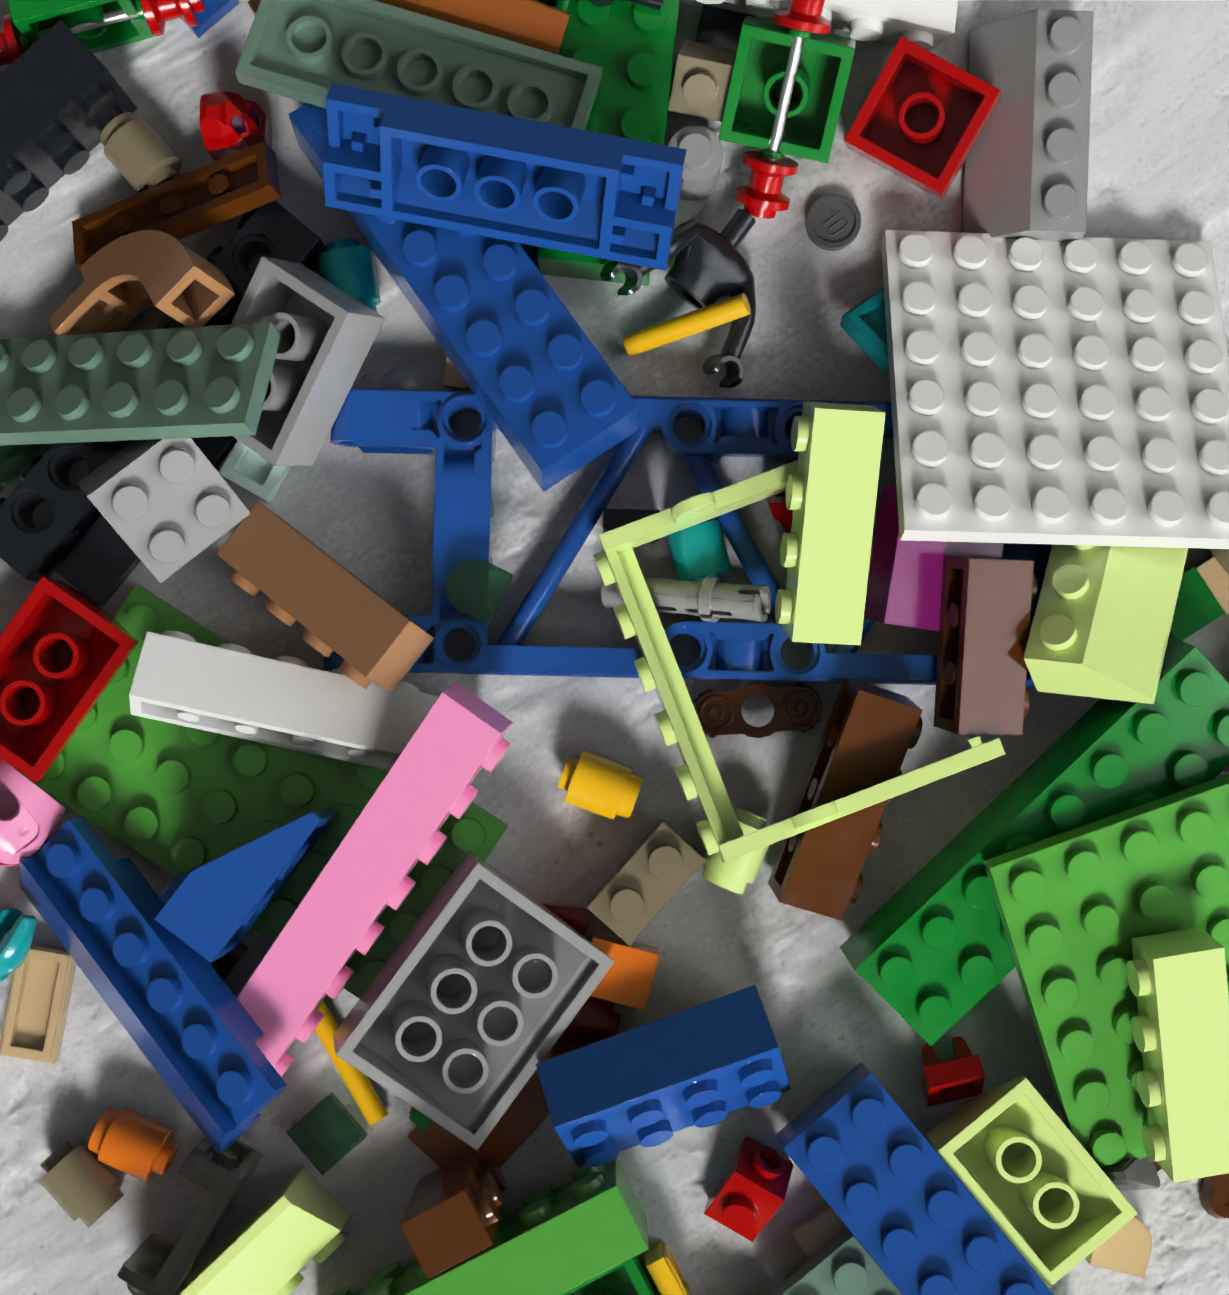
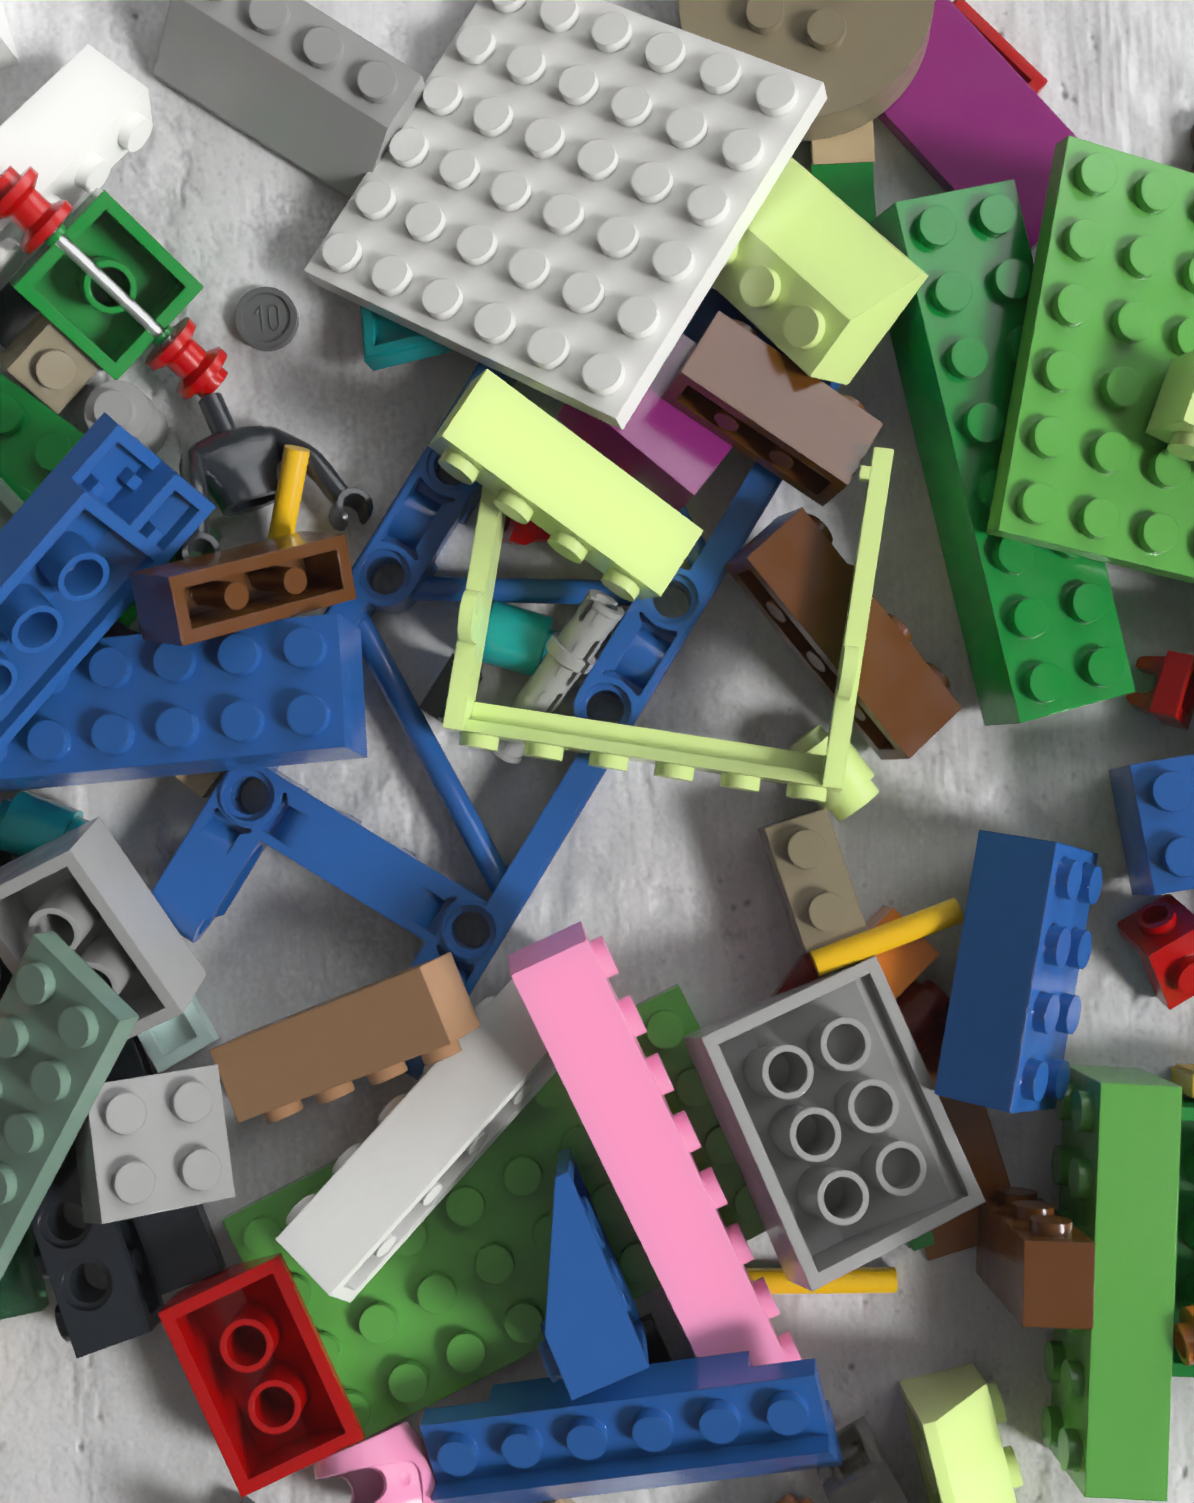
camera: 60 degrees left, 0 degrees up
(327, 1133) = (880, 1340): clear green tile -> none
(477, 589) = (426, 879): clear green tile -> none
(600, 785) = (691, 869): yellow brick -> none
(617, 325) = (242, 587): none -> reddish brown brick
(634, 962) = (887, 936): none -> yellow piece
(793, 706) = (726, 635): reddish brown piece -> none
(922, 118) = (213, 168): red brick -> none

